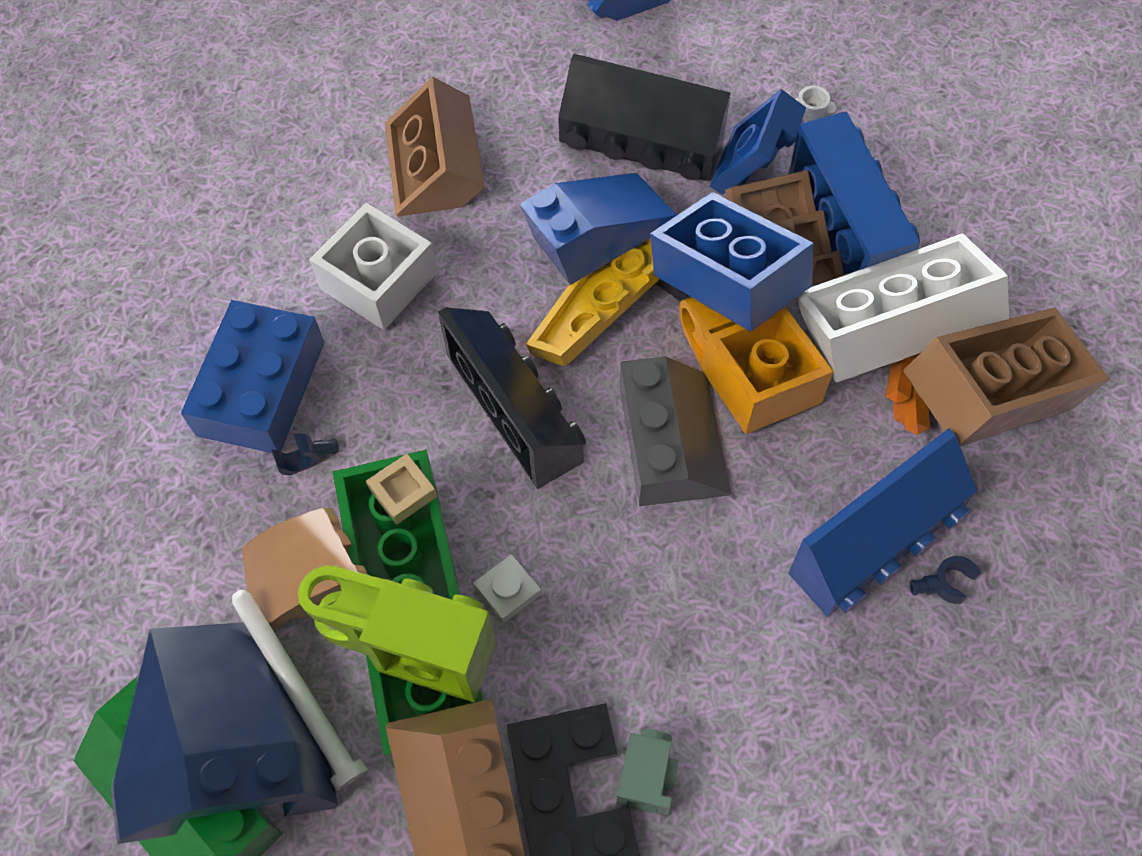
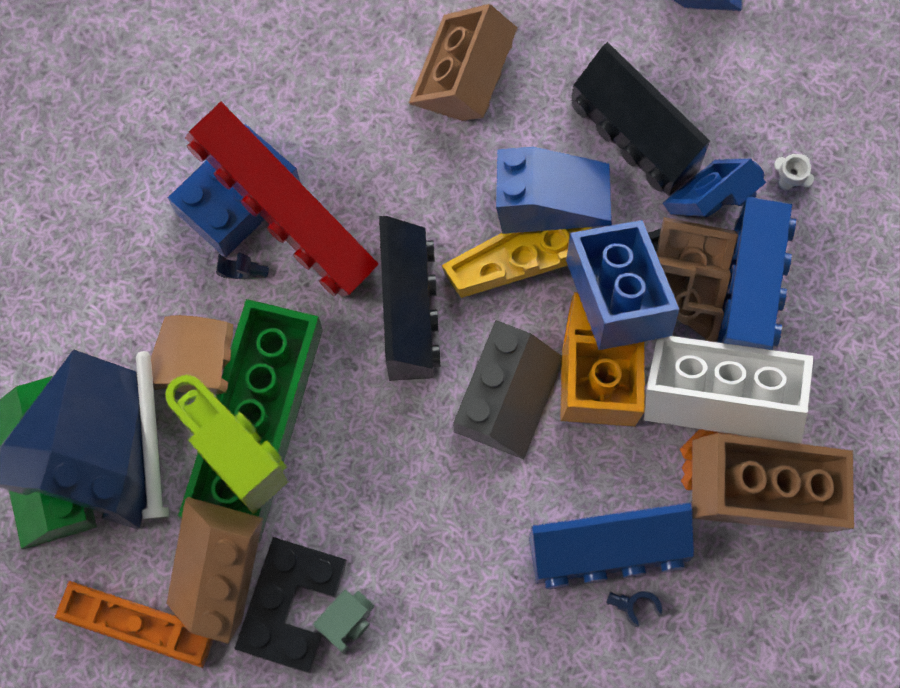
camera: 30 degrees right, 10 degrees up
(313, 349) = (281, 200): none -> red brick
(374, 265) = (364, 144): white brick -> none
(401, 488) = (282, 339): tan plate -> none
(507, 588) = (326, 443): white plate -> none

